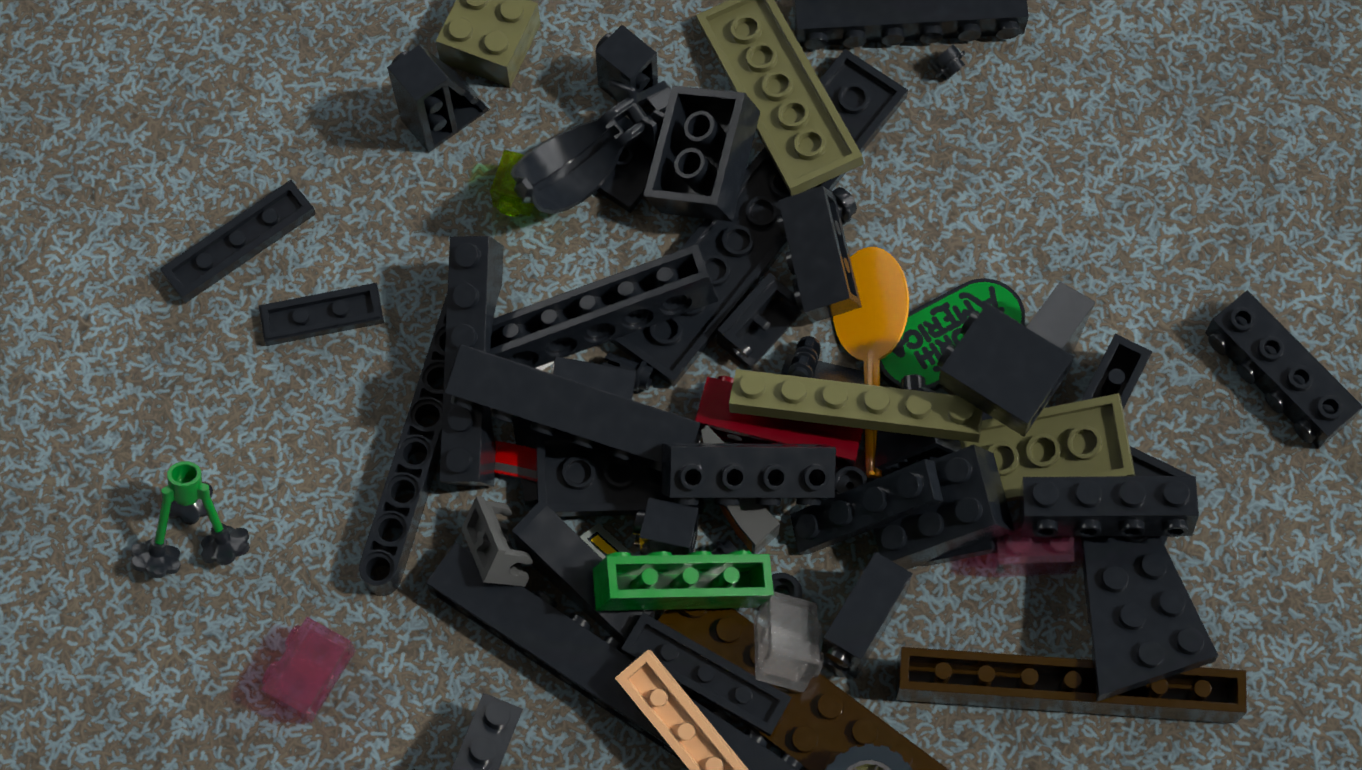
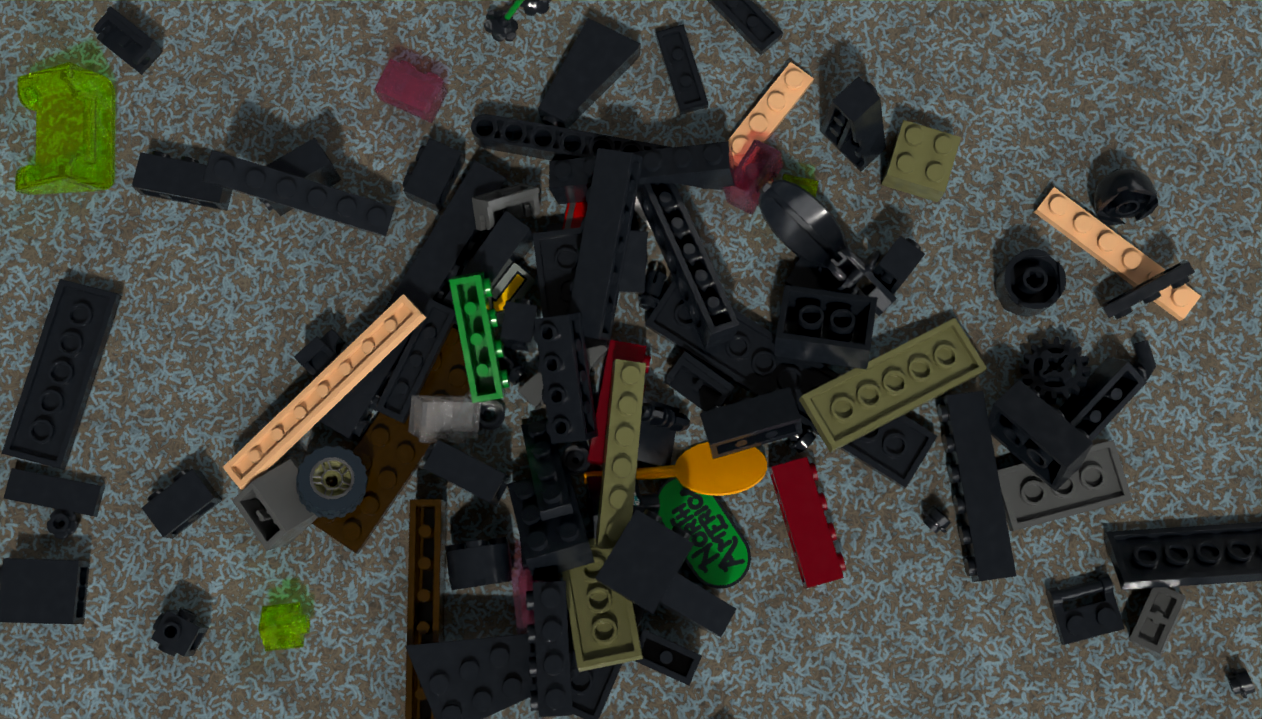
camera: 85 degrees right, 10 degrees up
(309, 430) = (588, 71): none -> black slope
(396, 210) = (770, 110): none -> light nougat plate
(435, 647) = (433, 174): none -> black brick
(474, 217) = (756, 168): none -> clear pink brick
(946, 208) = (806, 522): none -> dark red brick
(988, 608) = (479, 563): none -> black brick

